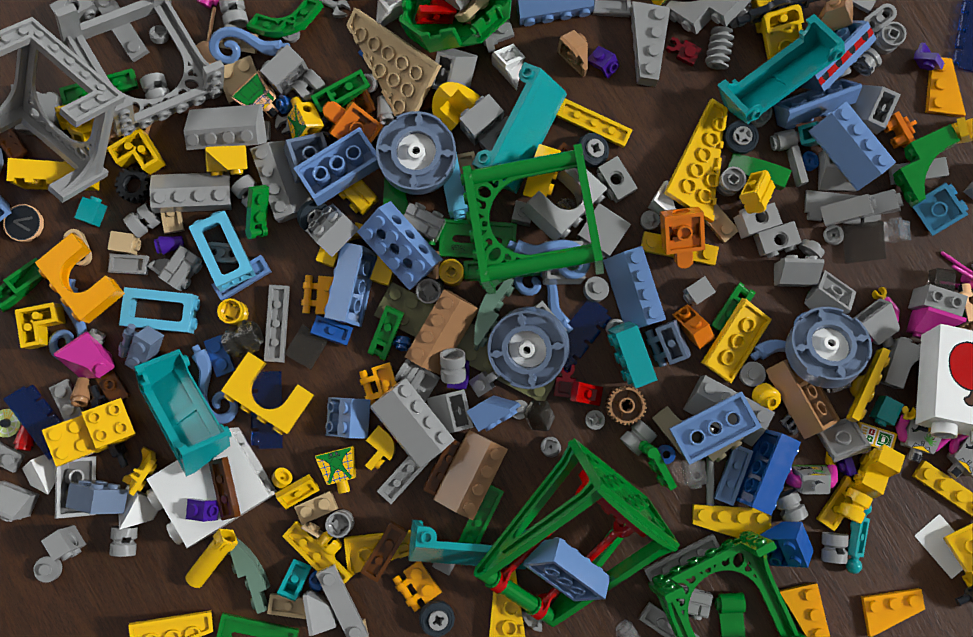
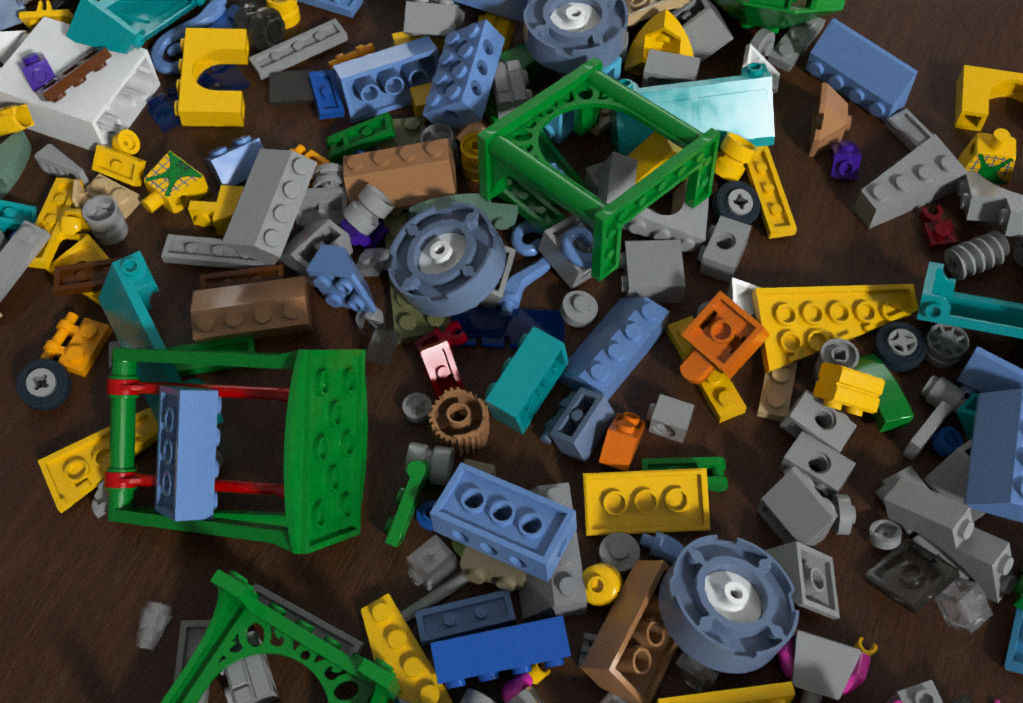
camera: 55 degrees right, 25 degrees down
(268, 528) = (59, 165): none -> light grey slope
(562, 127) = (733, 155): none -> yellow wheel

